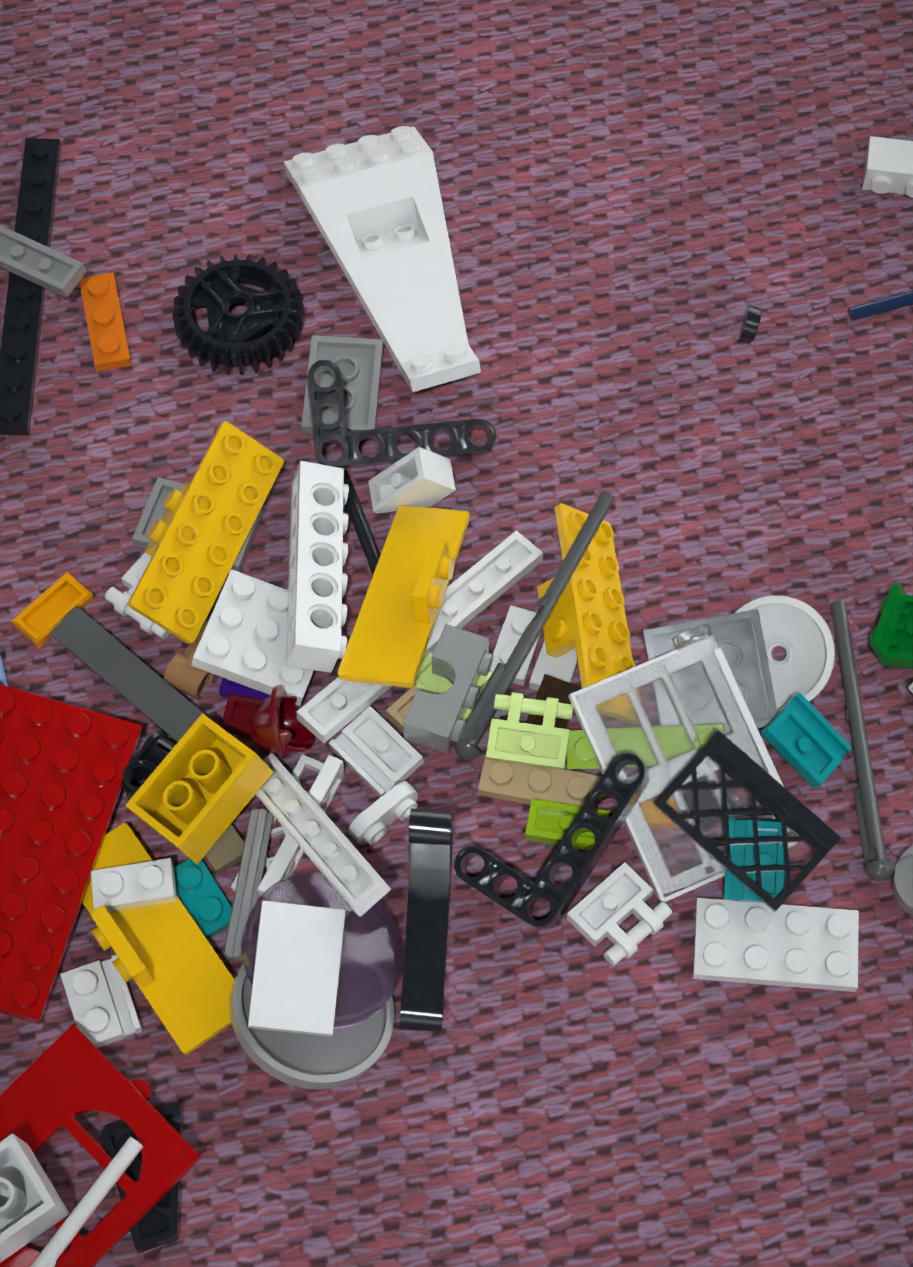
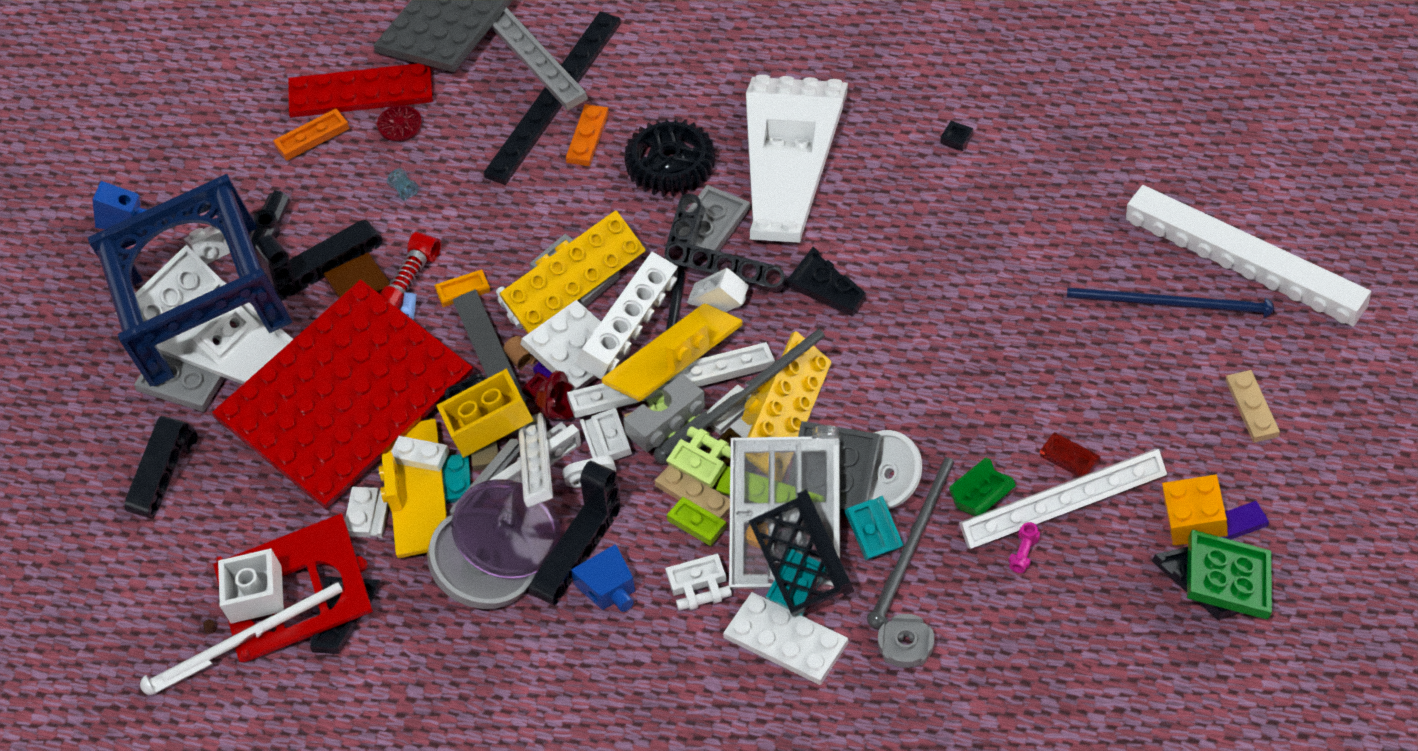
camera: 30 degrees right, 10 degrees down
(296, 969) = (478, 524): white tile -> none
(497, 964) = (606, 580): none -> blue torso
(538, 417) = (822, 282): none -> black wing
(565, 853) = (681, 530): black beam -> none
(595, 150) = (956, 135): none -> black plate
(750, 323) = (993, 274): black tile -> none

